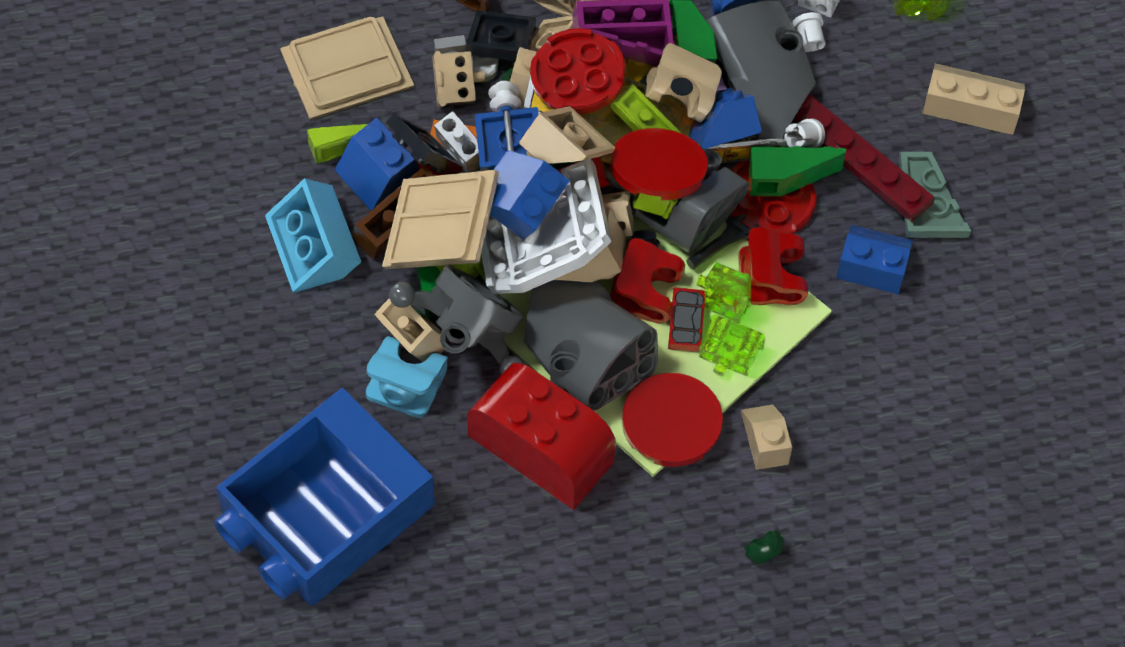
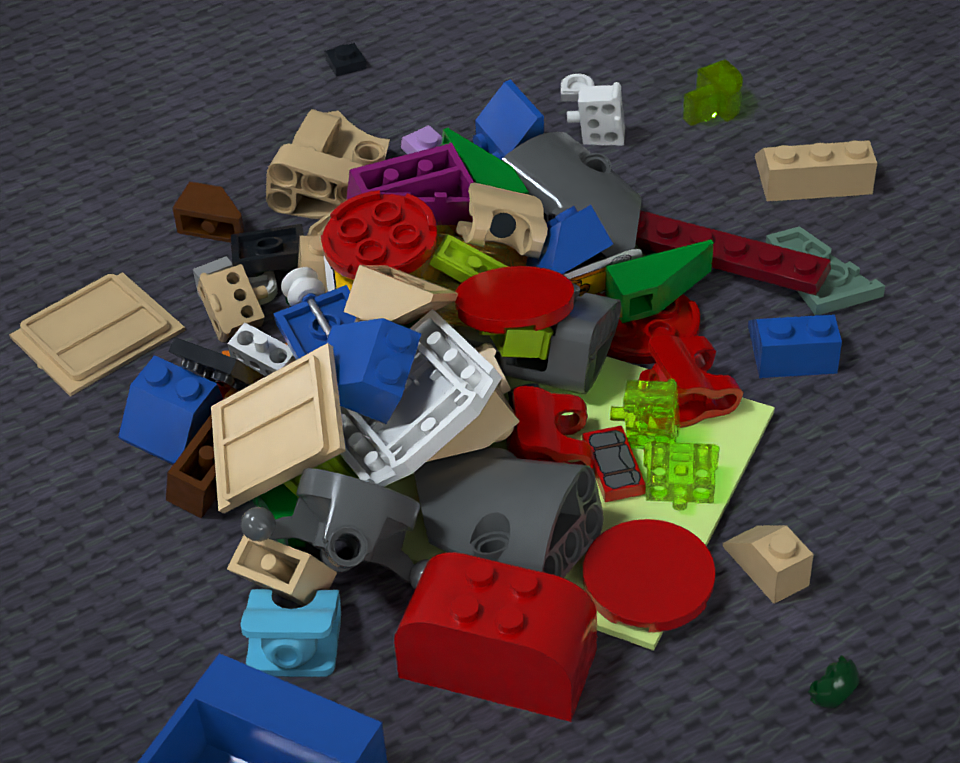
camera: 15 degrees left, 15 degrees down
(312, 236) = (115, 511): medium azure slope -> none
(330, 142) = (102, 406): lime slope -> none
(734, 232) = (622, 362): black piece -> none
(803, 131) = (661, 234): white bush -> none
(810, 28) = (611, 148): white bush -> none

